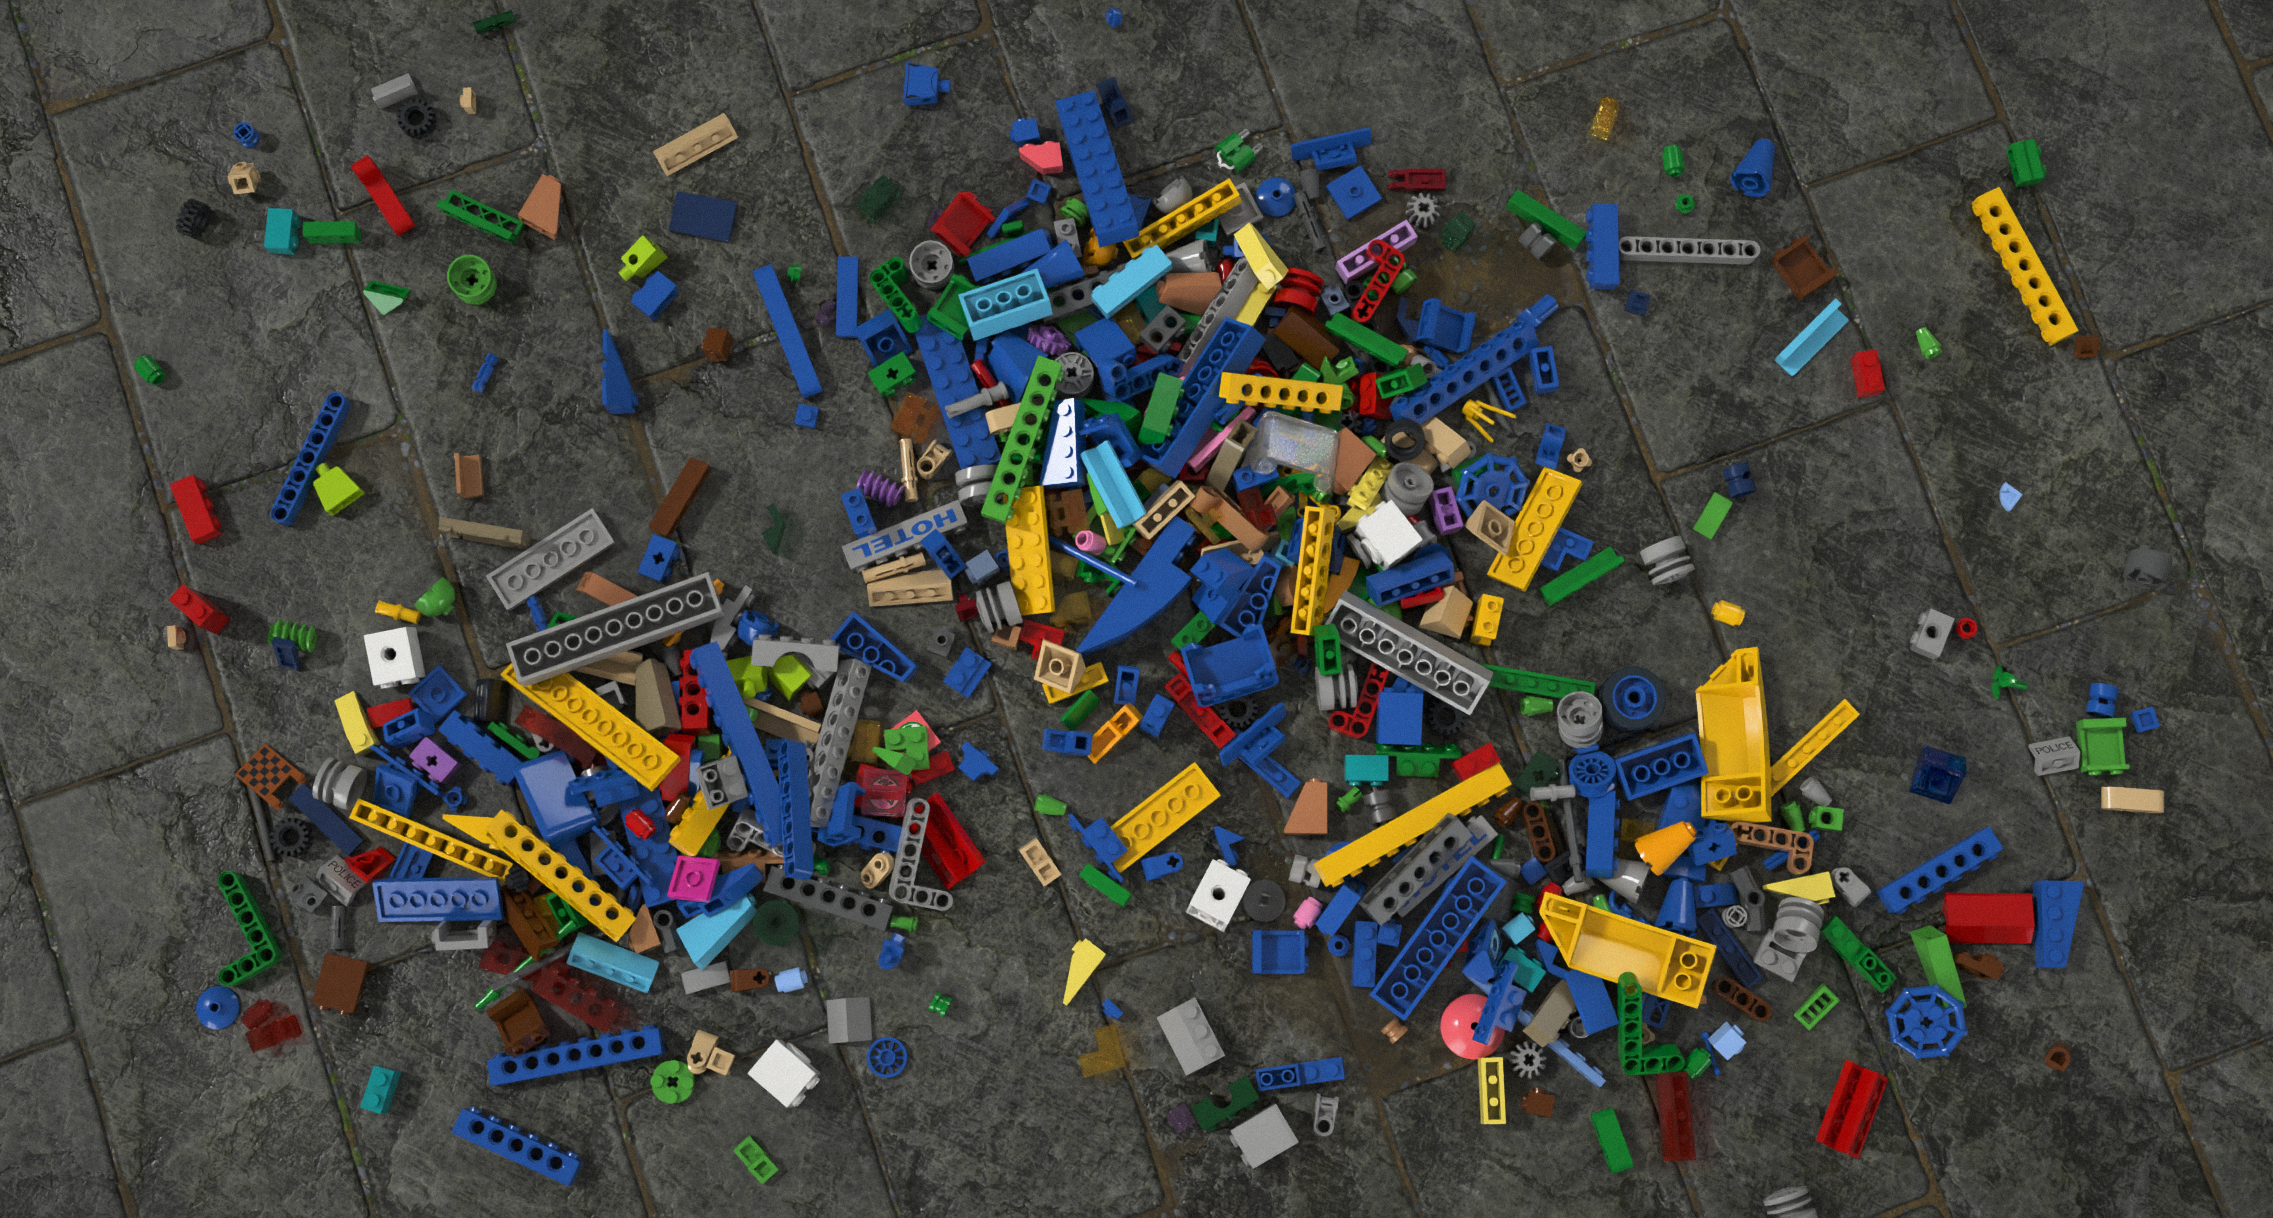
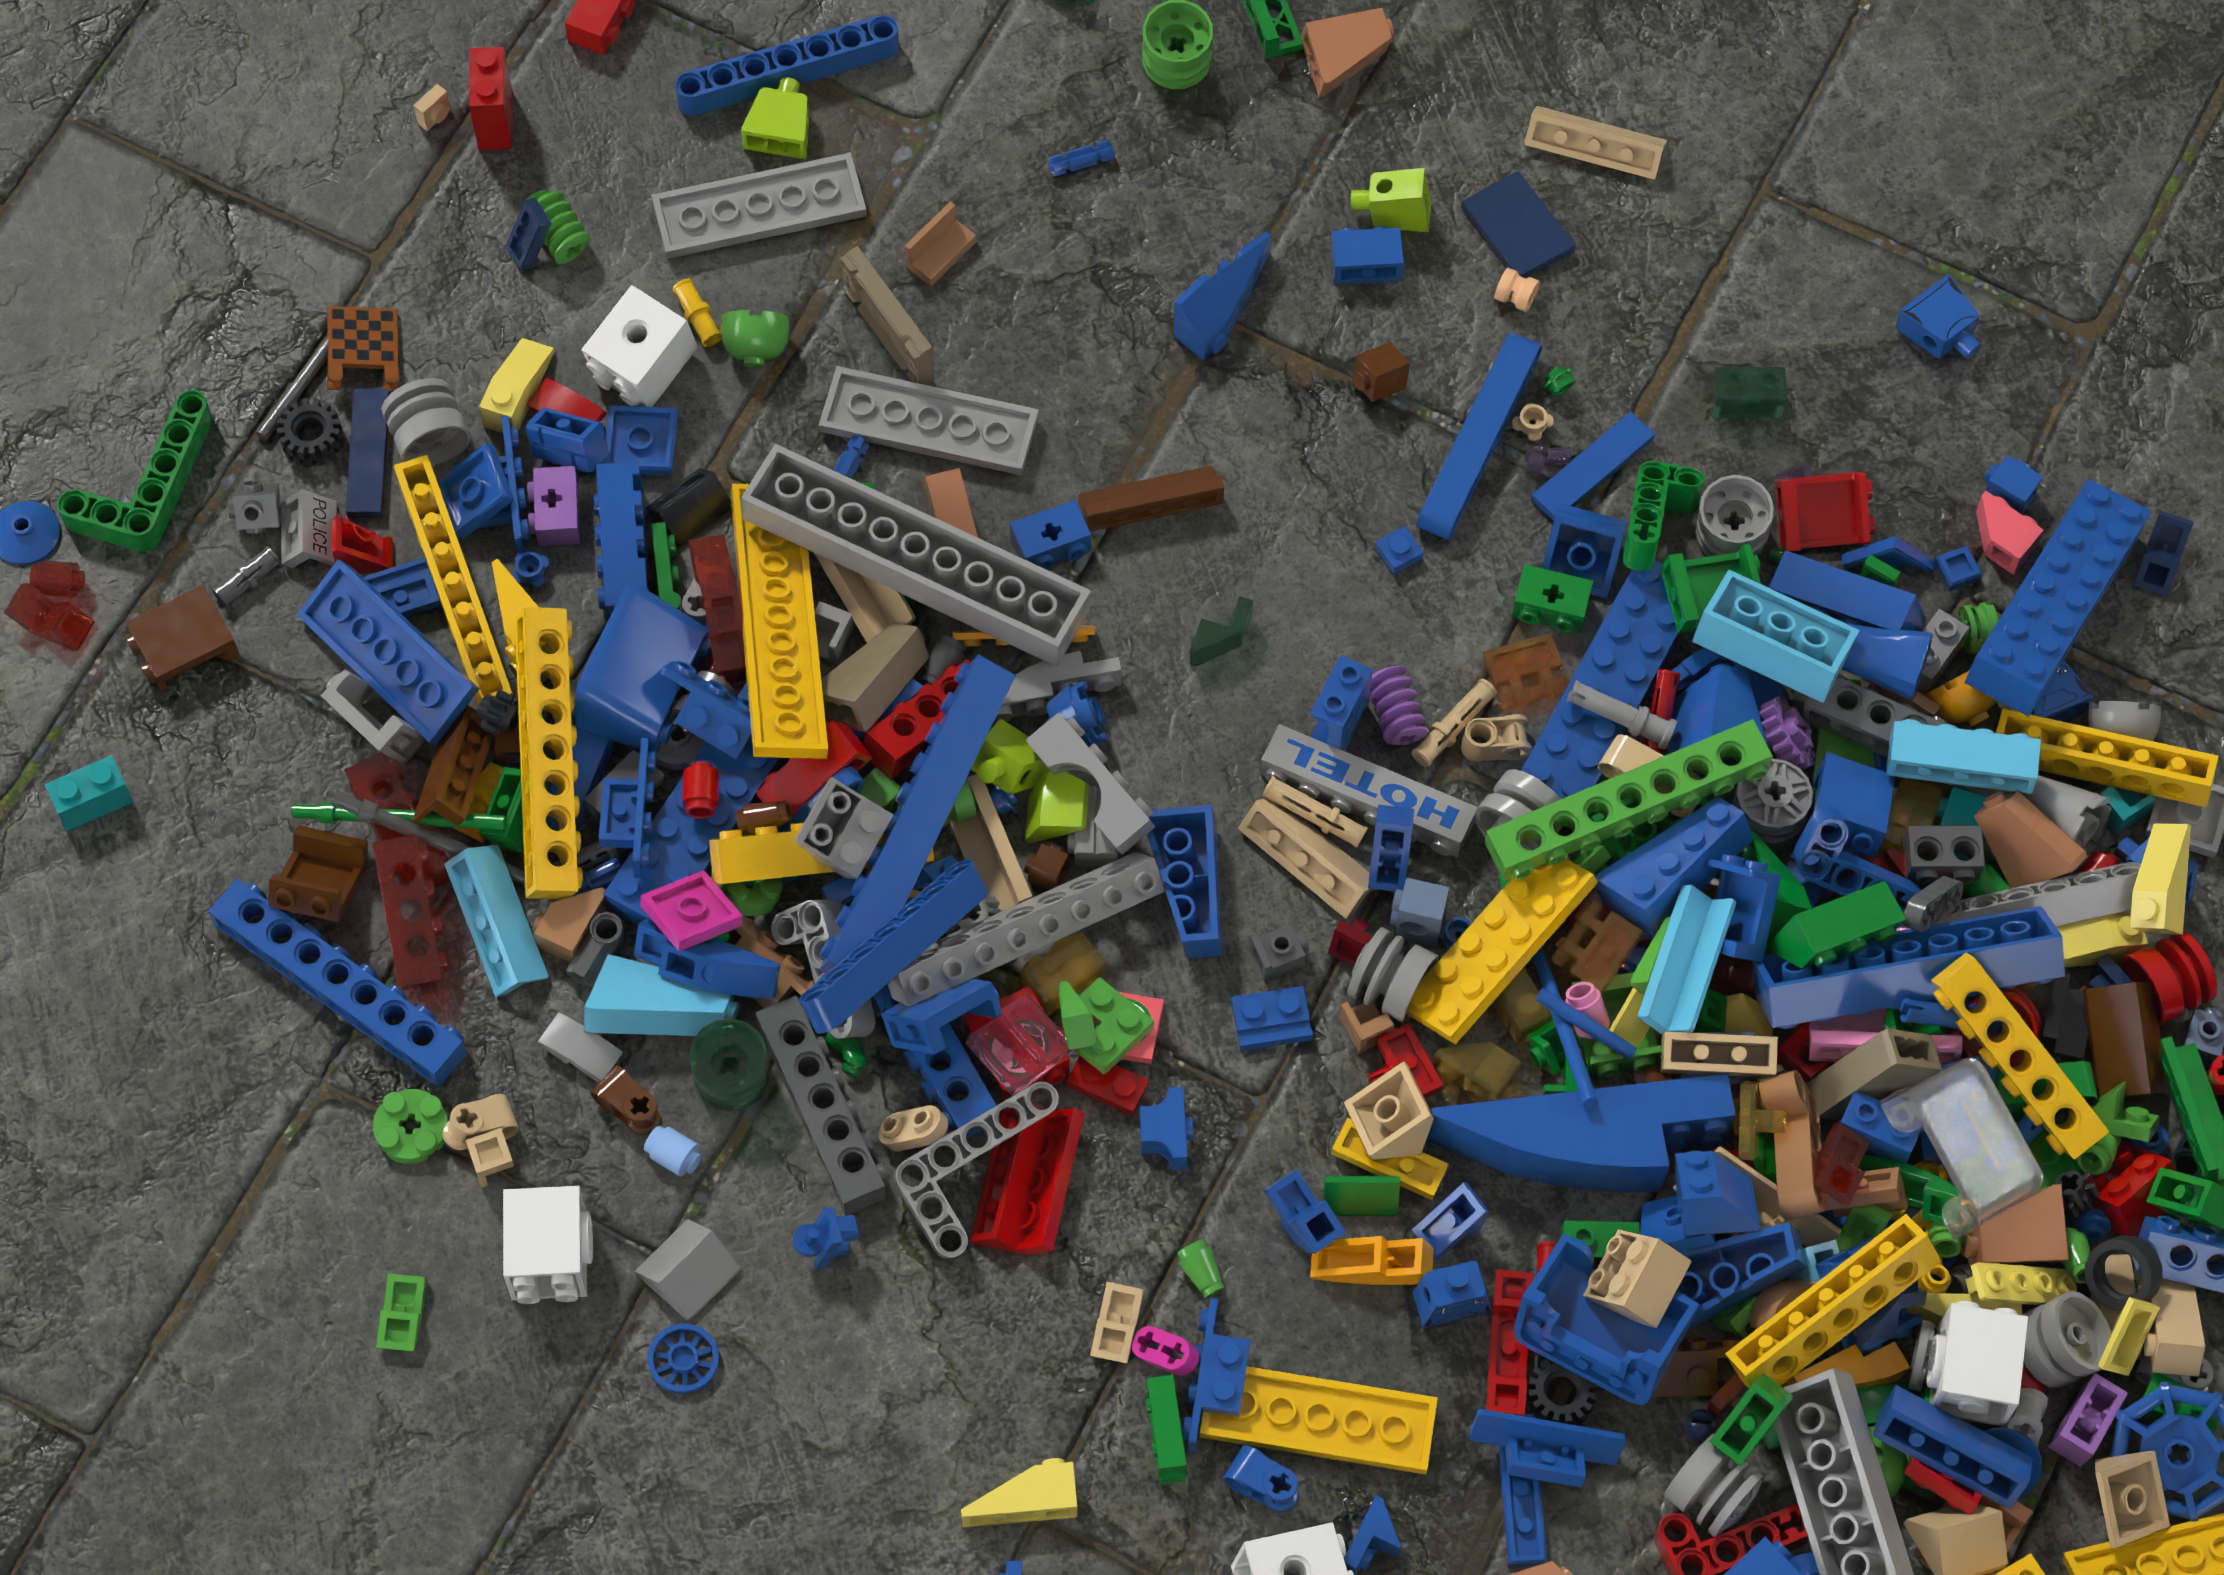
camera: 45 degrees right, 15 degrees down
(370, 536) = (758, 205): none -> light grey plate
(466, 1129) = (130, 931): blue brick -> none
(734, 248) = (1517, 289): none -> light nougat wheel
(798, 297) = (1534, 413): none -> tan plate
(904, 923) = (881, 1231): bright green pin -> none
(940, 1004) = (814, 1361): green wheel -> none
(1073, 858) = (1162, 1357): none -> dark pink beam
(1097, 550) = (1585, 1023): none -> blue bar
(1183, 359) = (1933, 904): none -> dark grey beam
(1226, 637) = (1637, 1277): none -> tan slope
(1430, 464) = (2128, 1336): none -> light yellow slope

